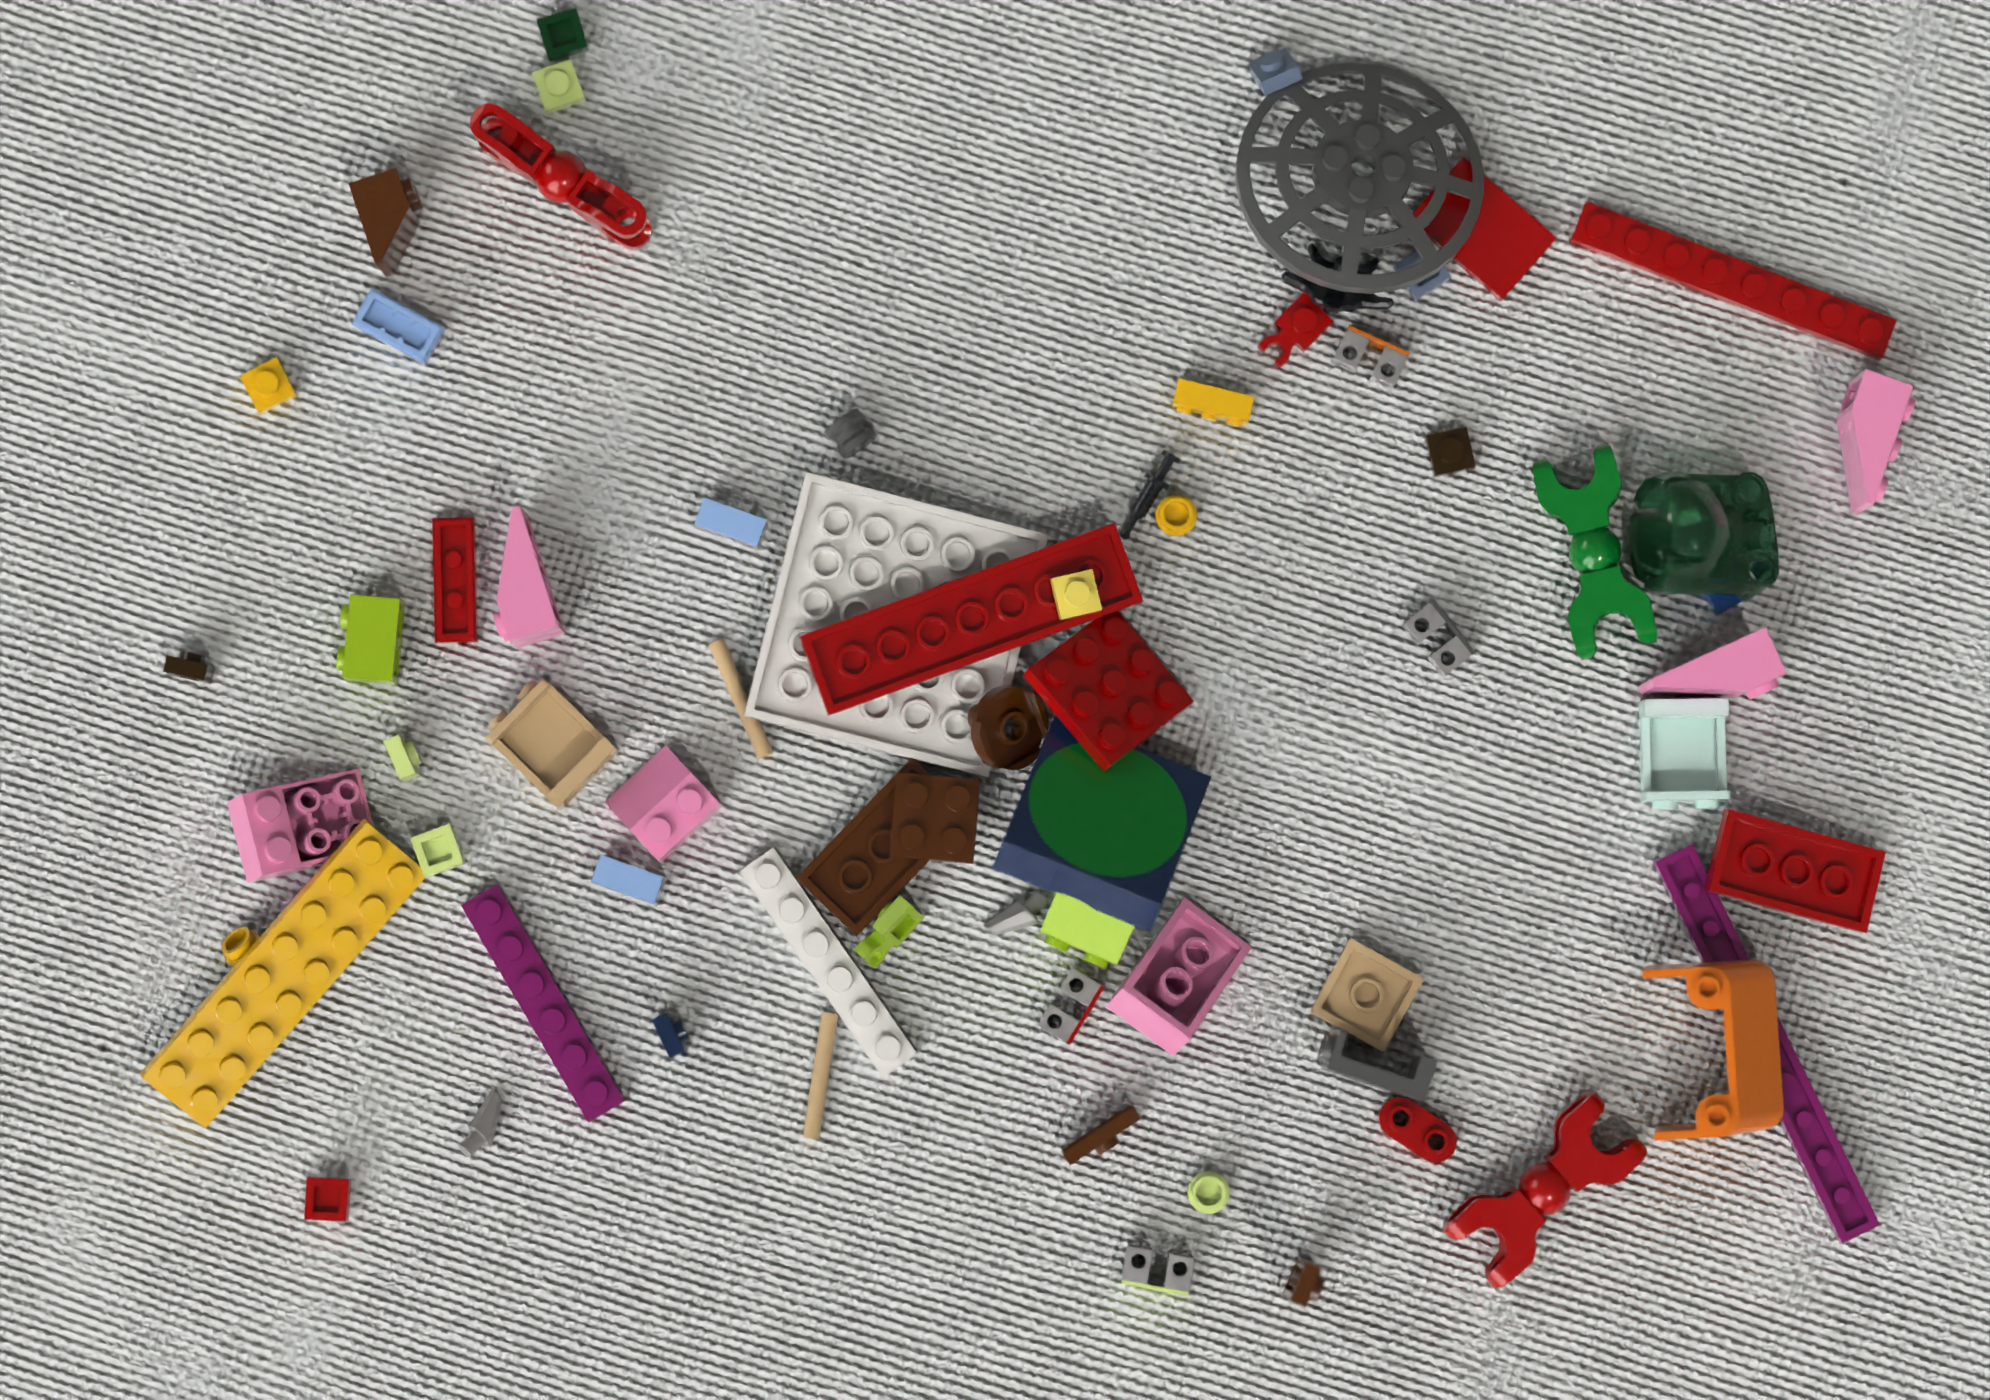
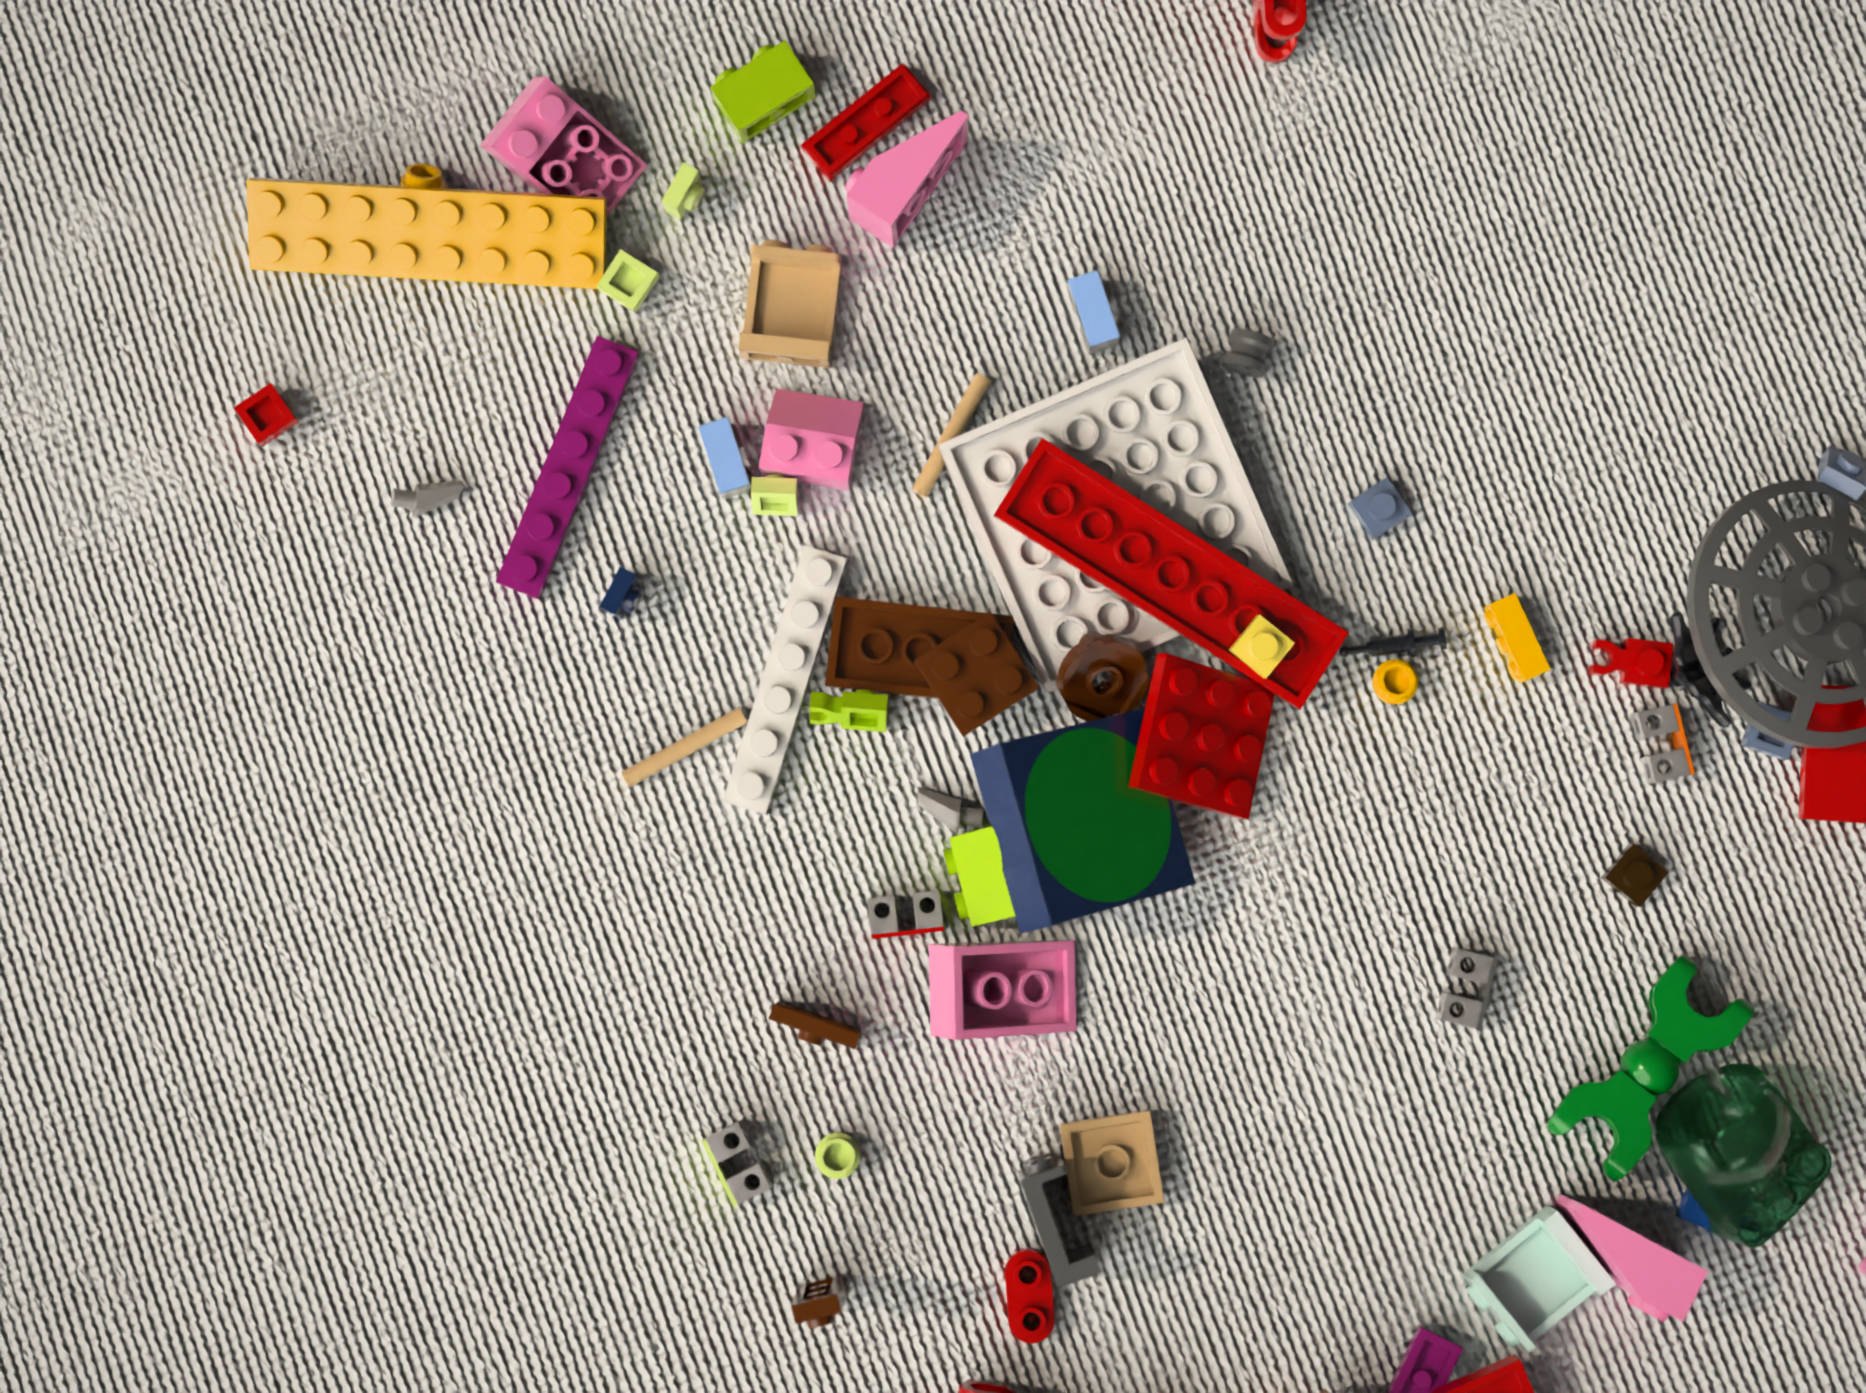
camera: 55 degrees right, 0 degrees up
(685, 865) = (774, 495): none -> yellowish green plate
(1040, 426) = (1379, 508): none -> sand blue plate

